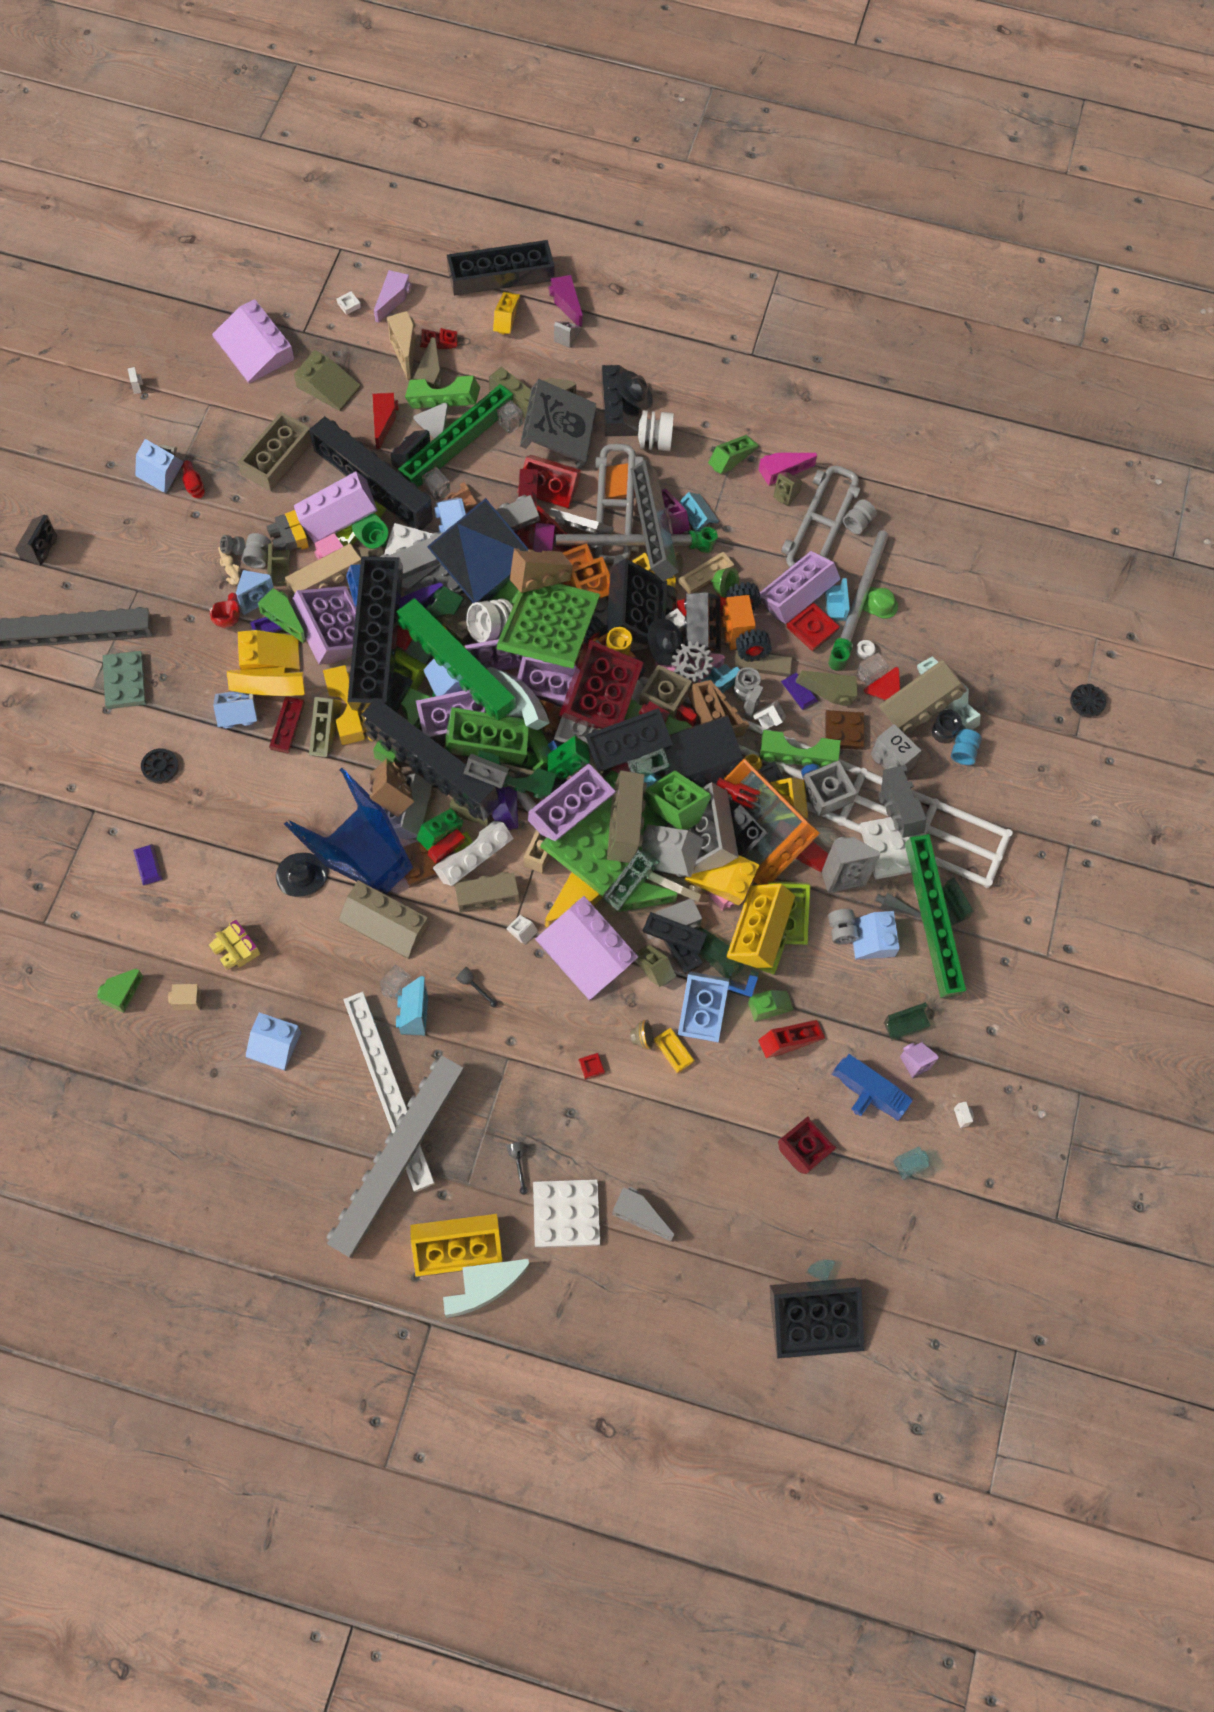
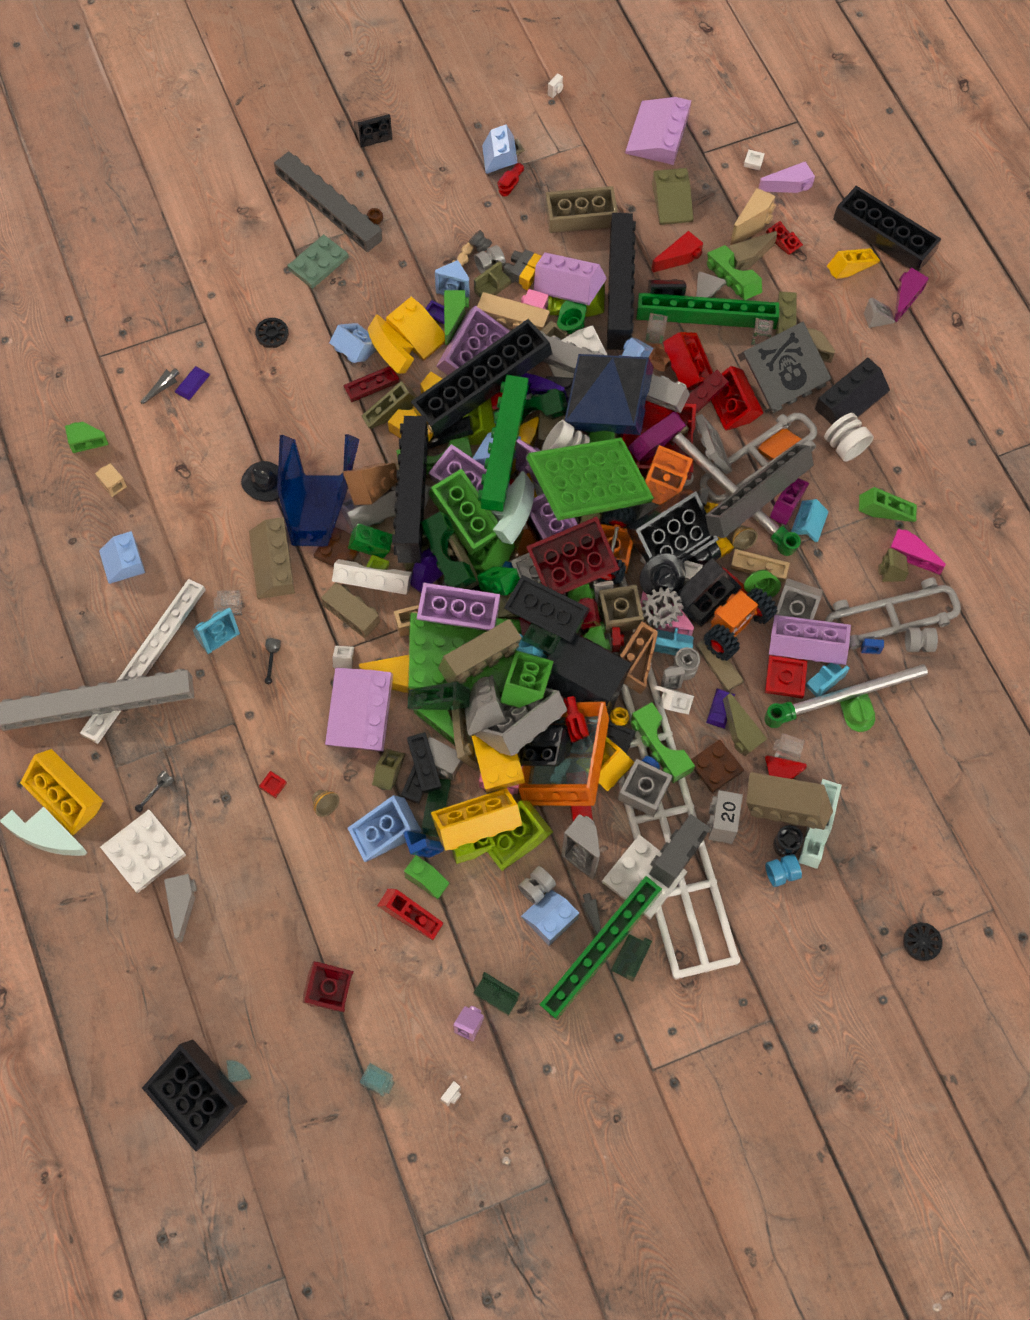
camera: 55 degrees right, 0 degrees up
(124, 602) = (375, 215): none -> reddish brown plate
(126, 884) = (165, 381): none -> dark grey piece
(226, 613) = (421, 279): red hair -> none
(237, 944) = (175, 480): light yellow hips -> none
(446, 846) = (362, 555): red piece -> none
(486, 771) = (424, 527): dark grey panel -> none
(489, 483) = (688, 358): none -> red slope
(538, 570) = (629, 440): medium nougat wedge -> none
(619, 640) = (622, 542): yellow wheel -> none
(634, 390) = (871, 396): black hat -> none
(674, 1050) = (332, 834): yellow tile -> none
(760, 568) = (798, 600): none -> light grey slope
(837, 551) = (872, 646): none -> blue tile
(865, 649) = (804, 731): white tile -> none
(871, 1088) = (413, 1005): blue piece -> none

